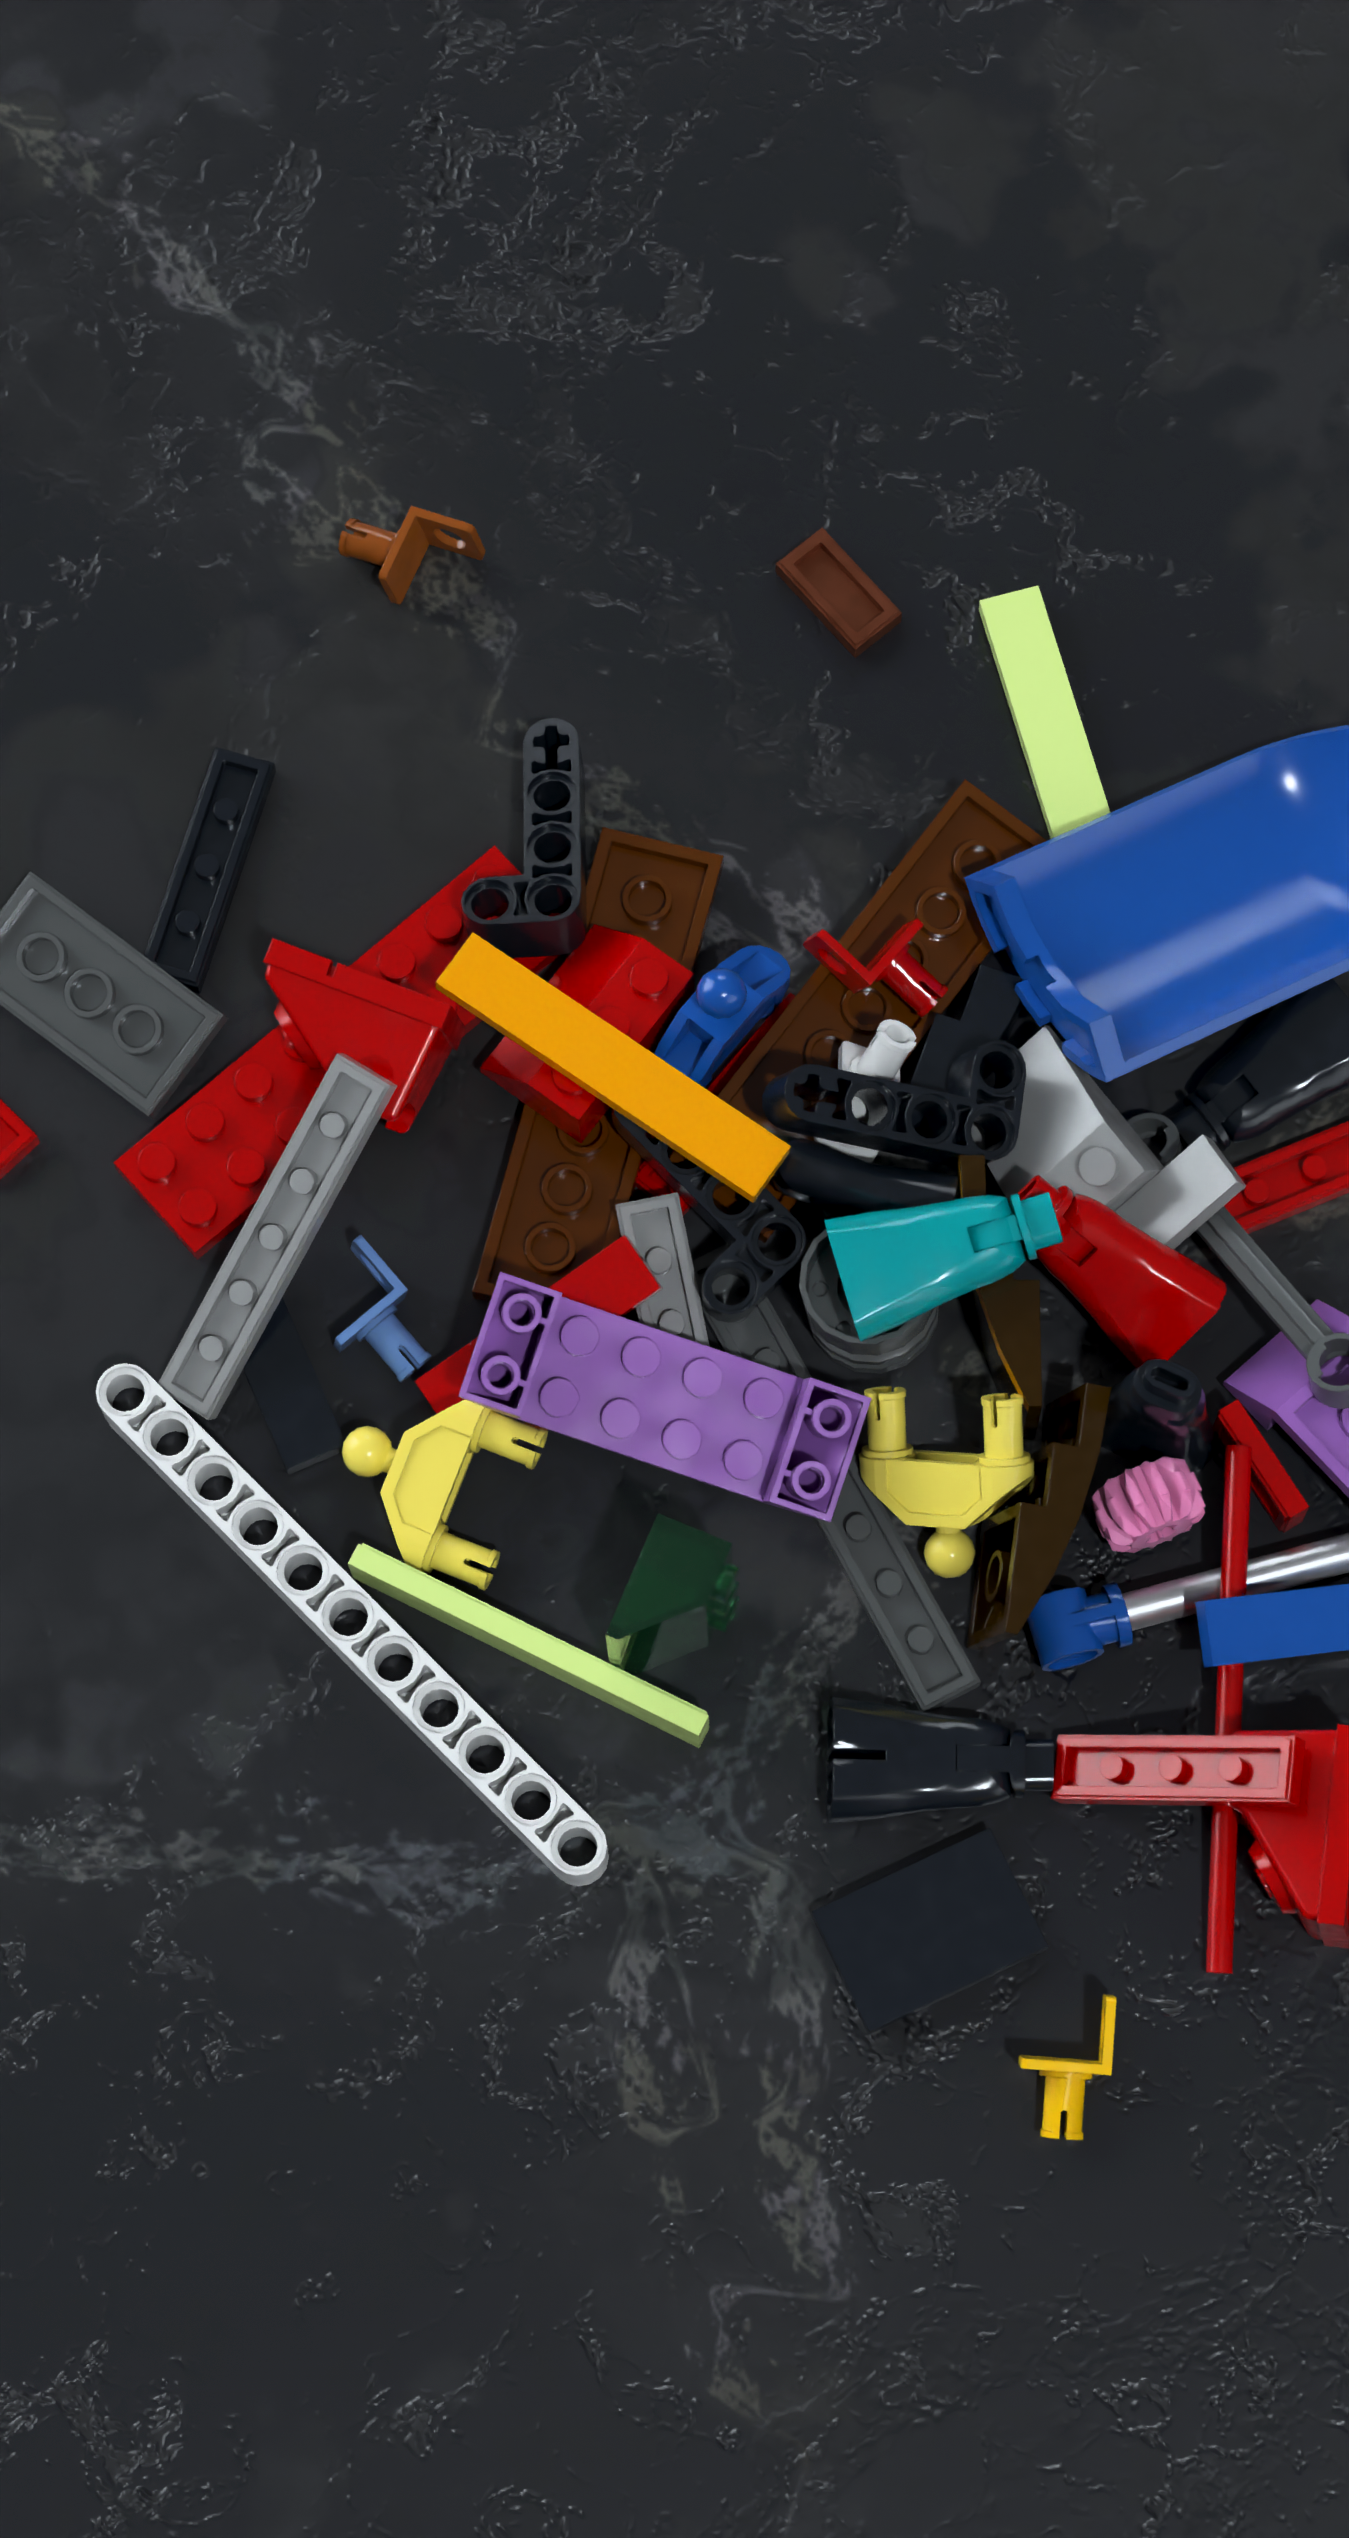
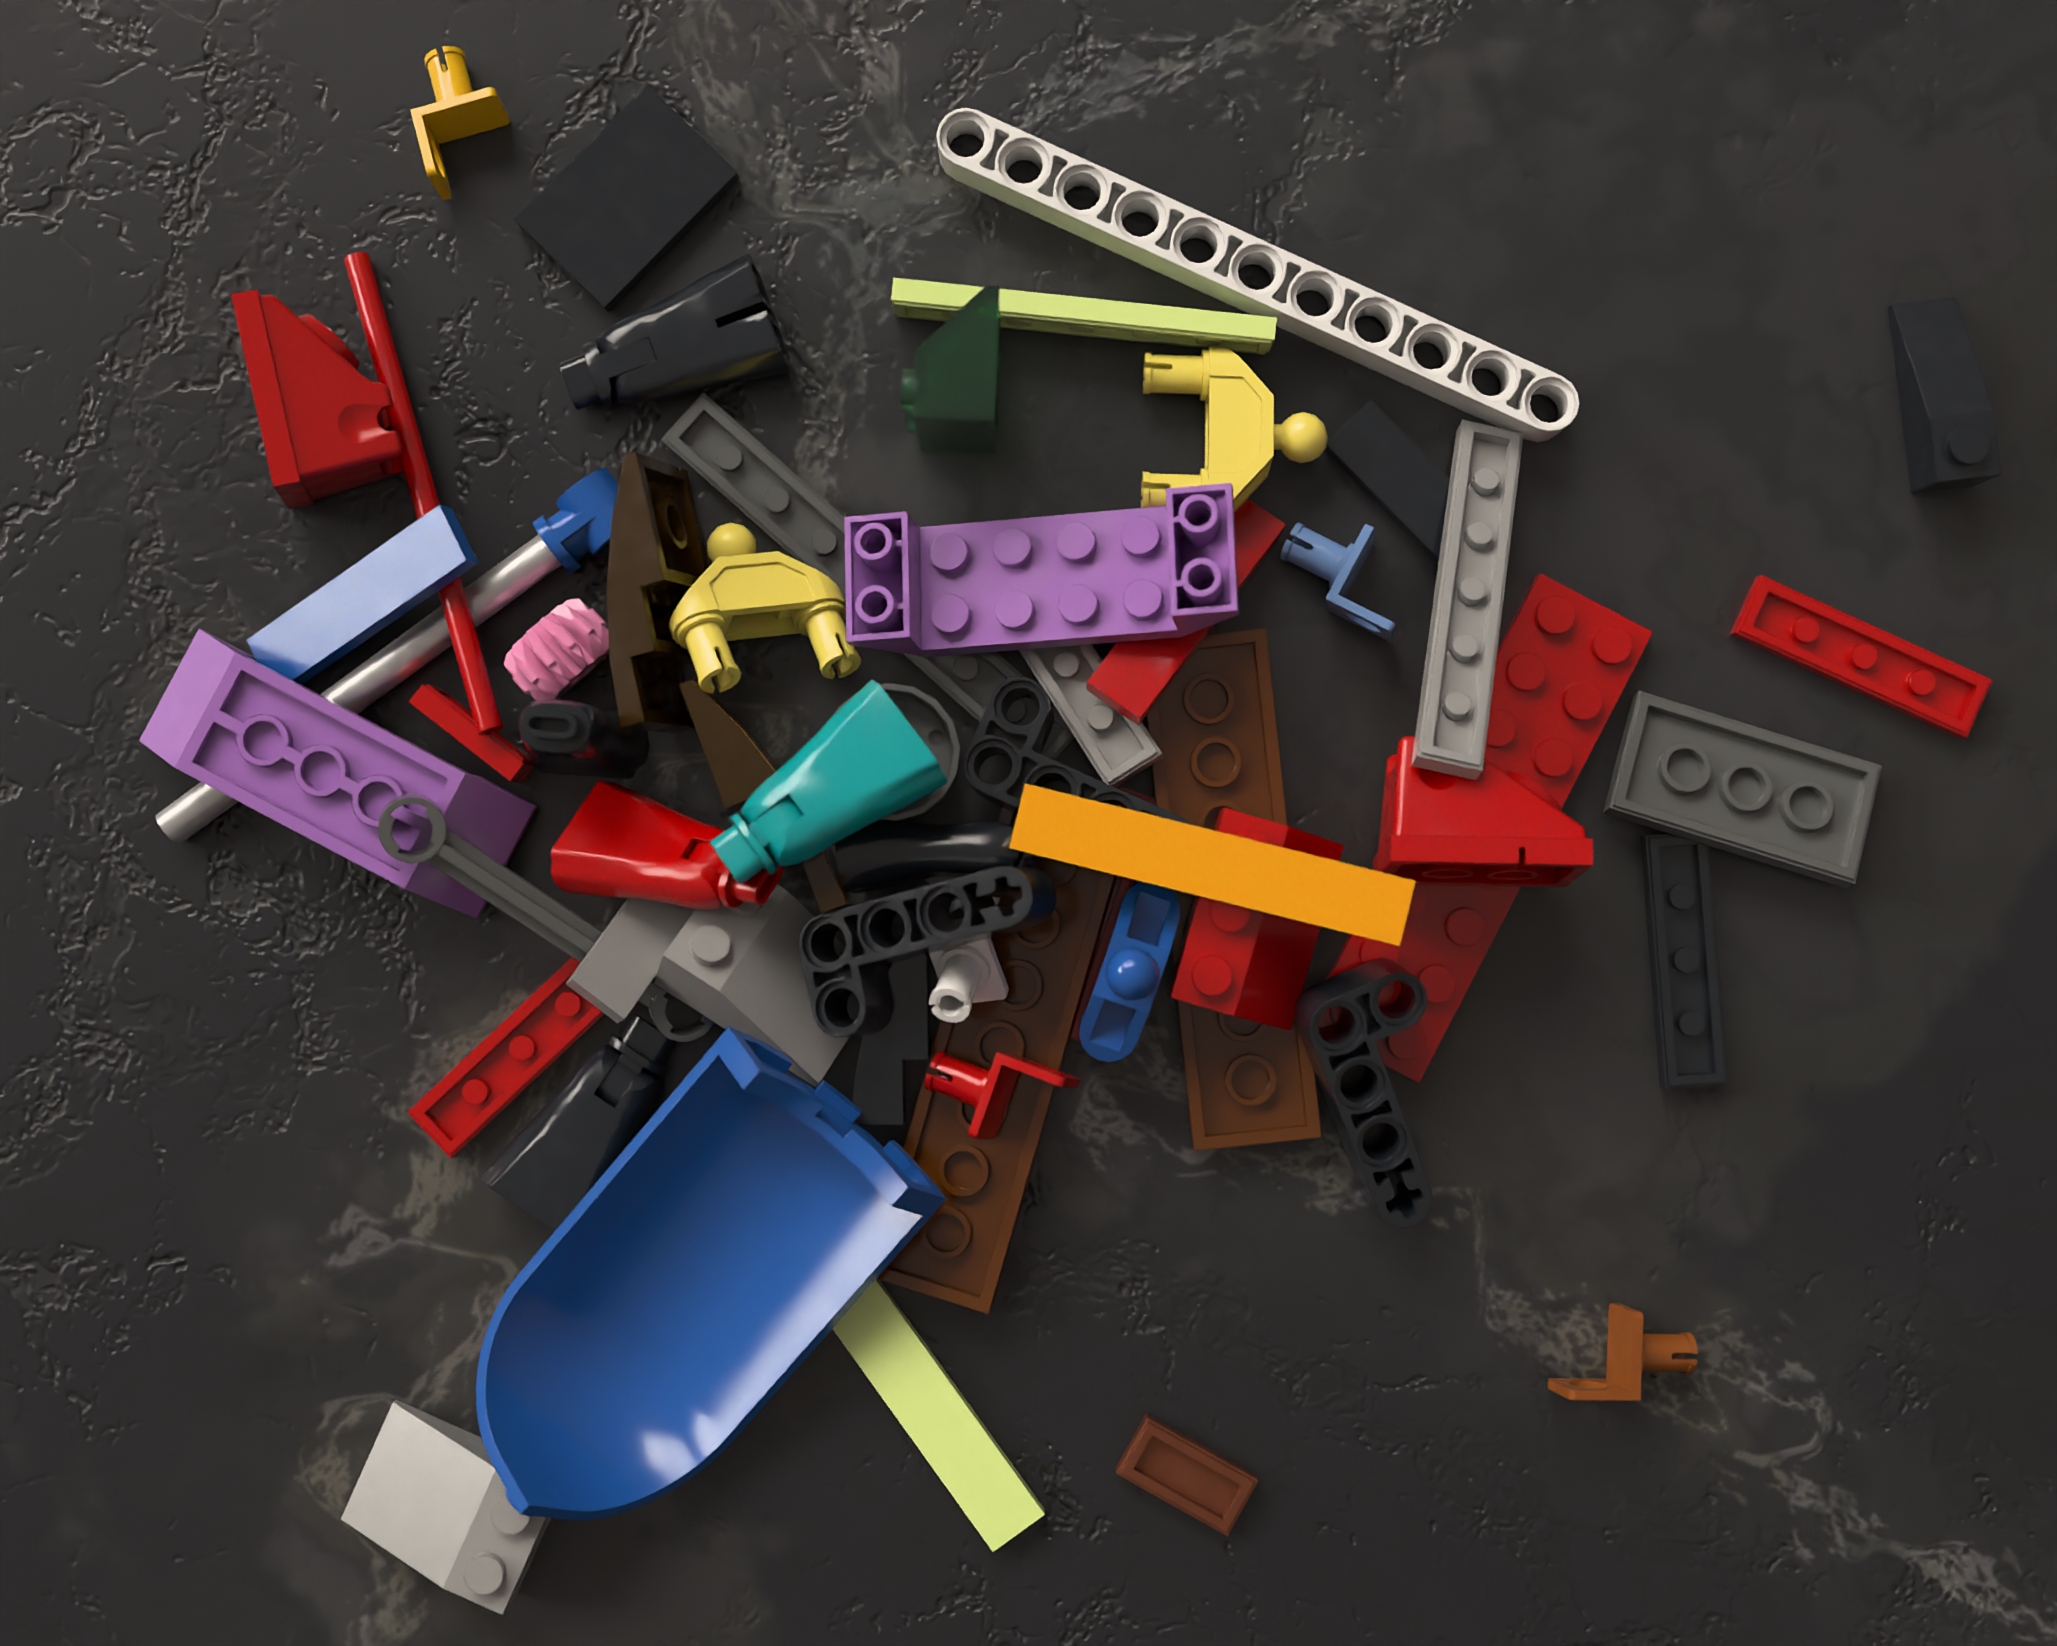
camera: 155 degrees right, 15 degrees up
(1179, 1770) = (439, 403): tile -> none

